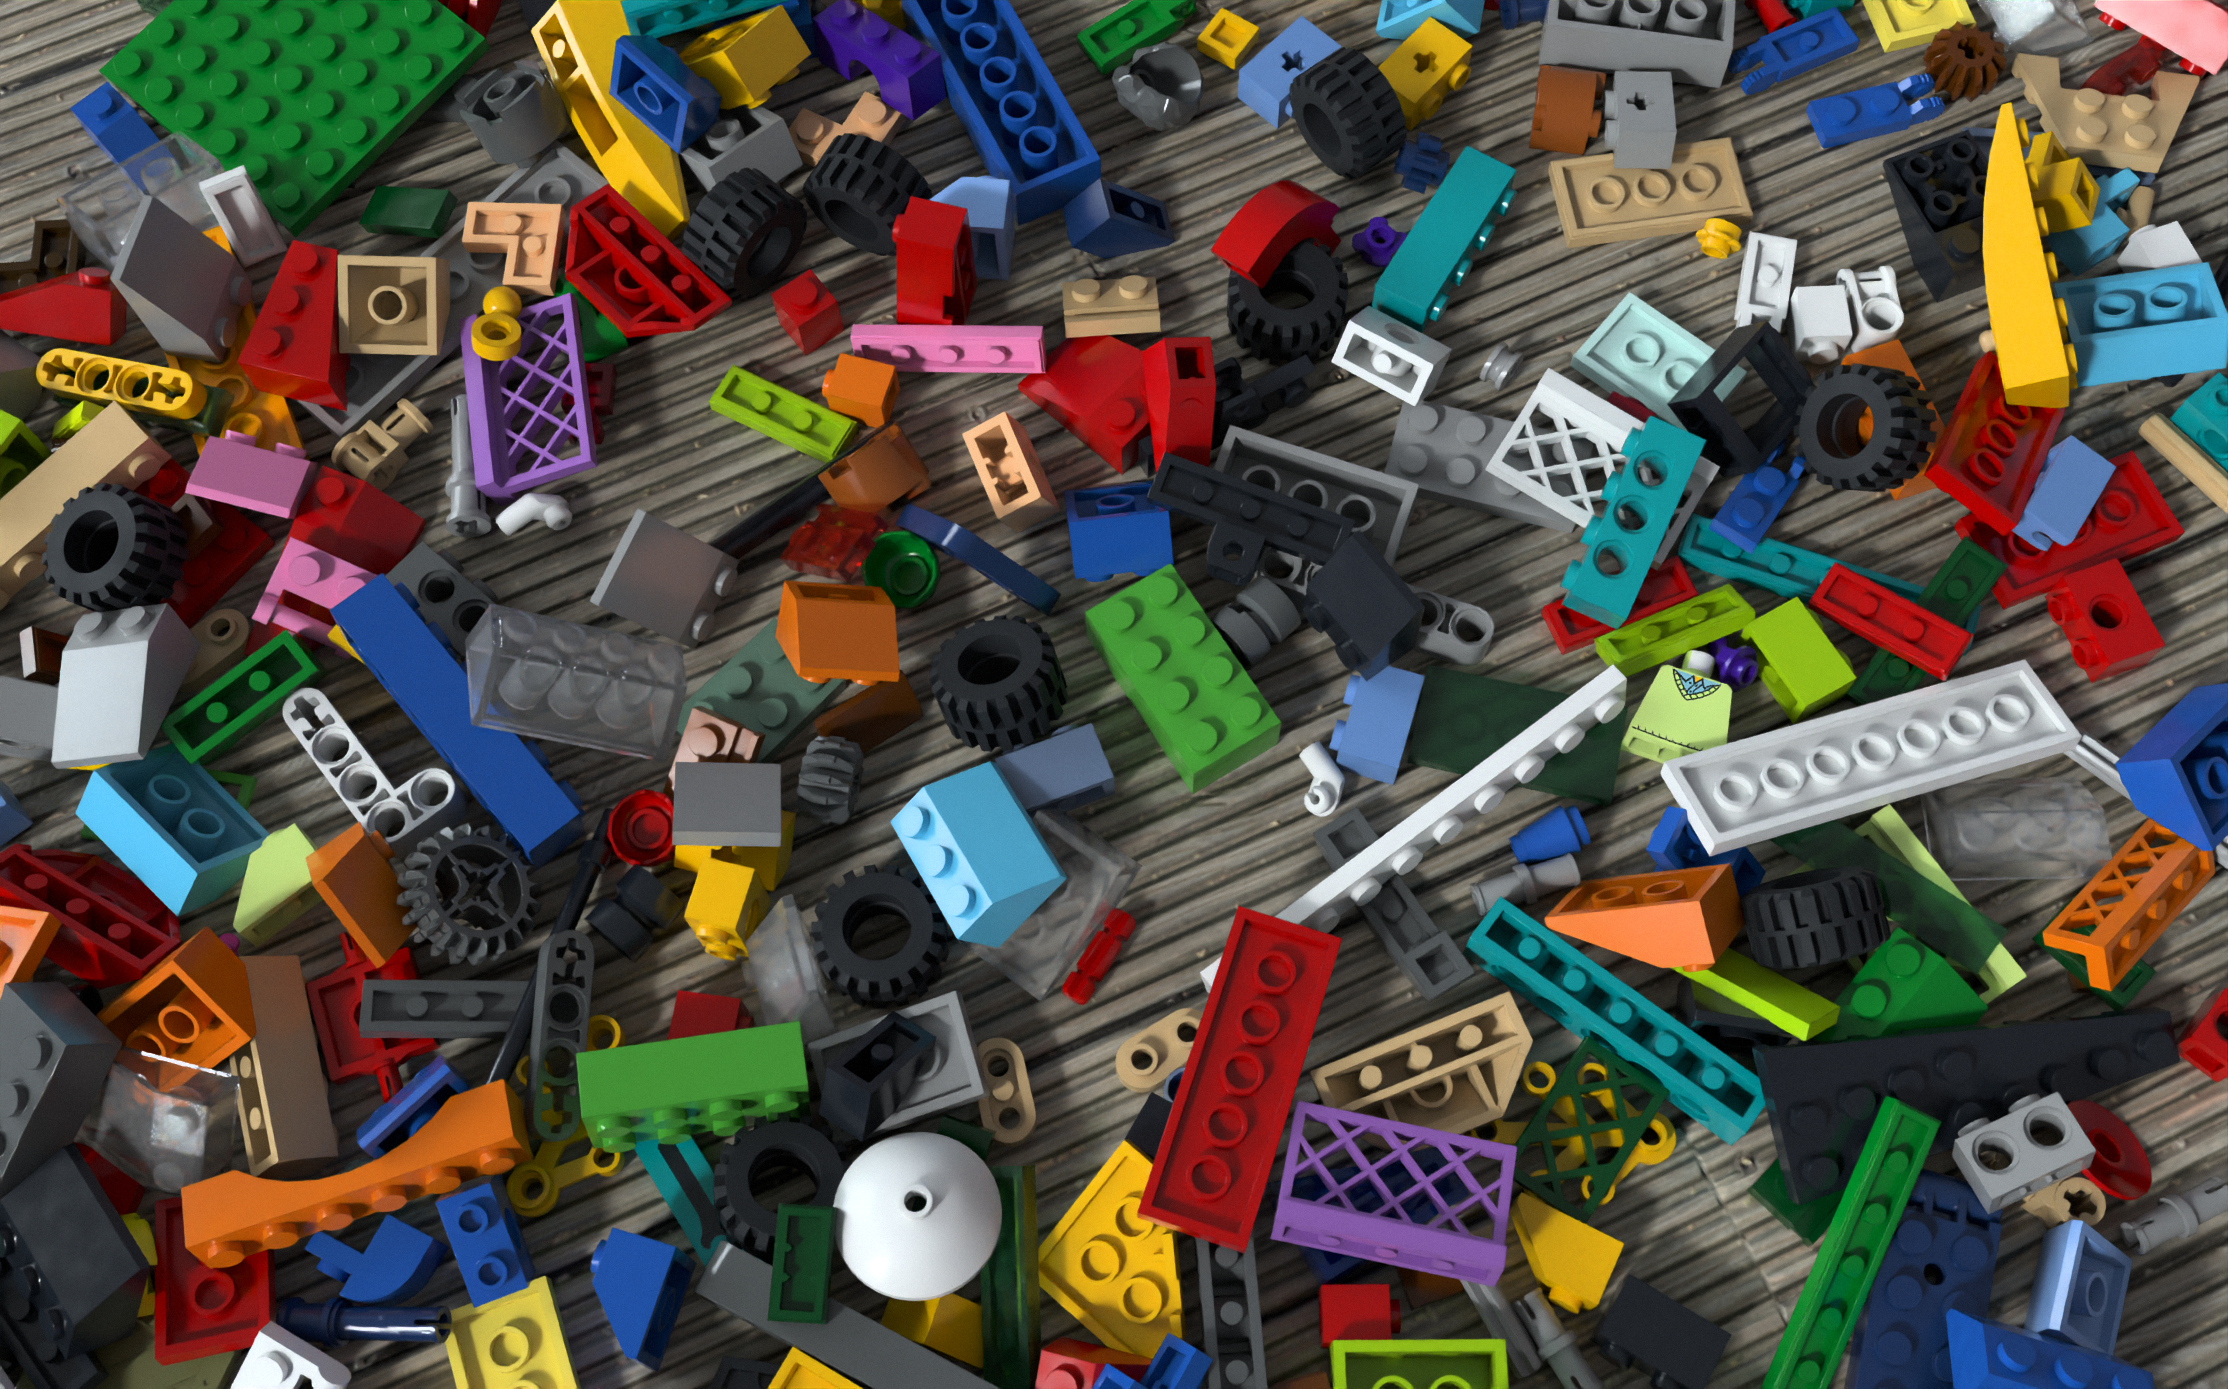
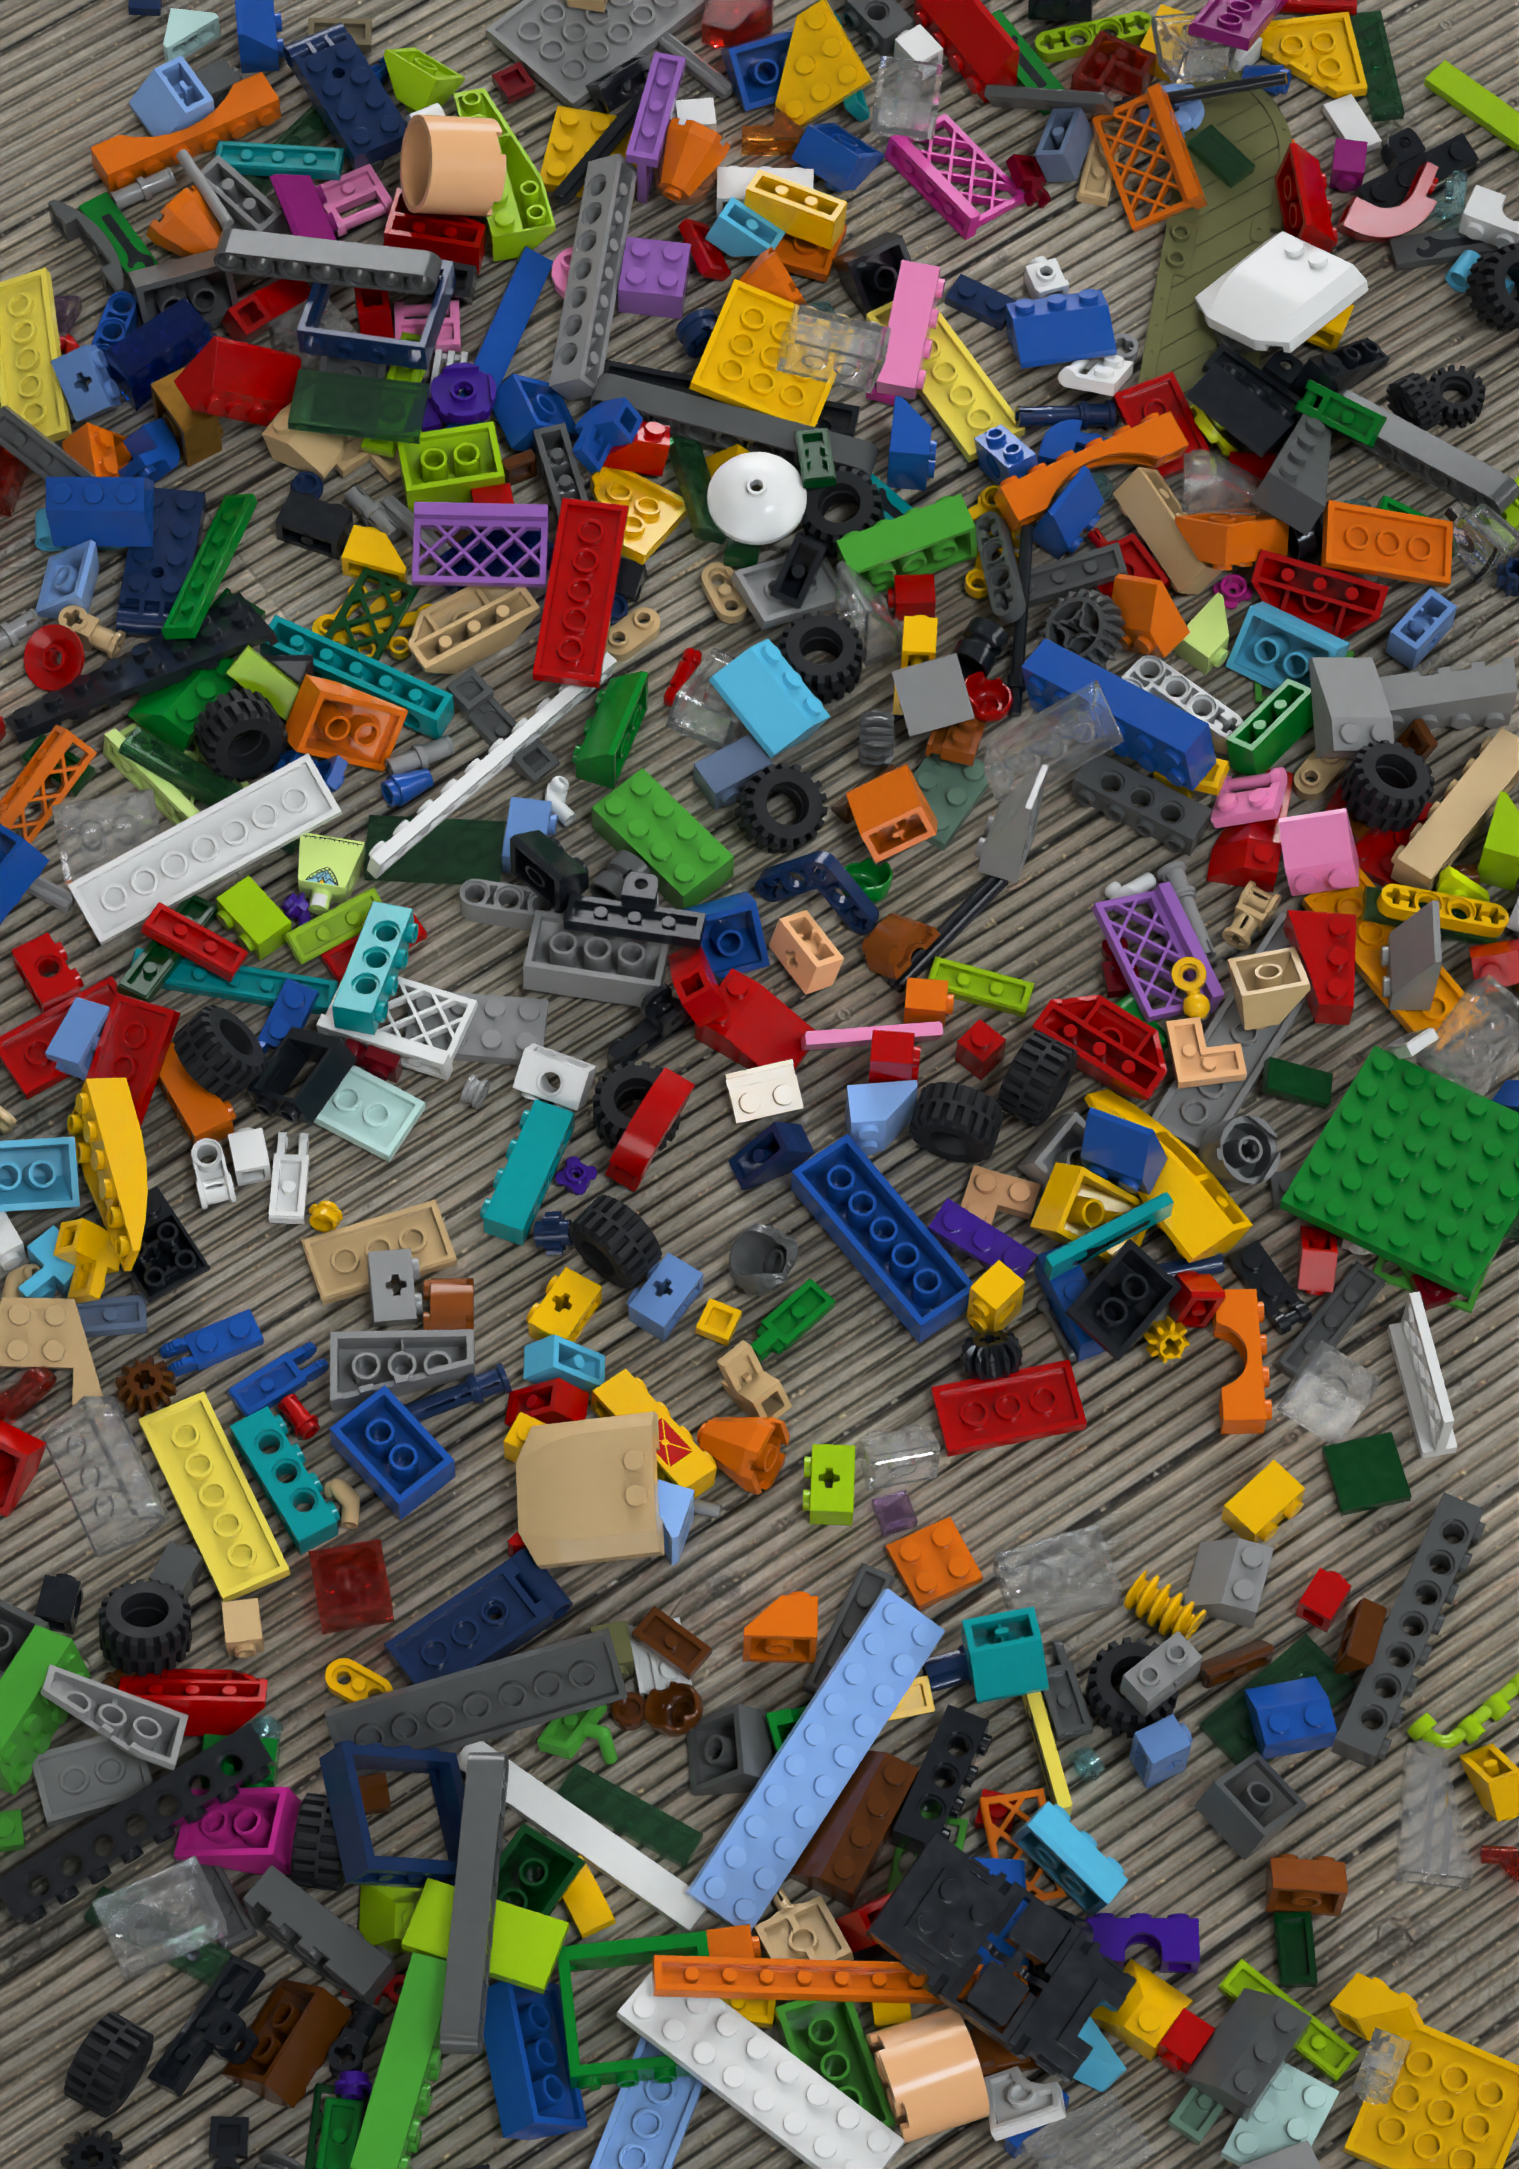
camera: 165 degrees right, 5 degrees down
(833, 542) = (916, 888): clear red plate -> none
(1226, 862) = (612, 729): none -> green slope
(2031, 1163) = (106, 621): light grey brick -> none

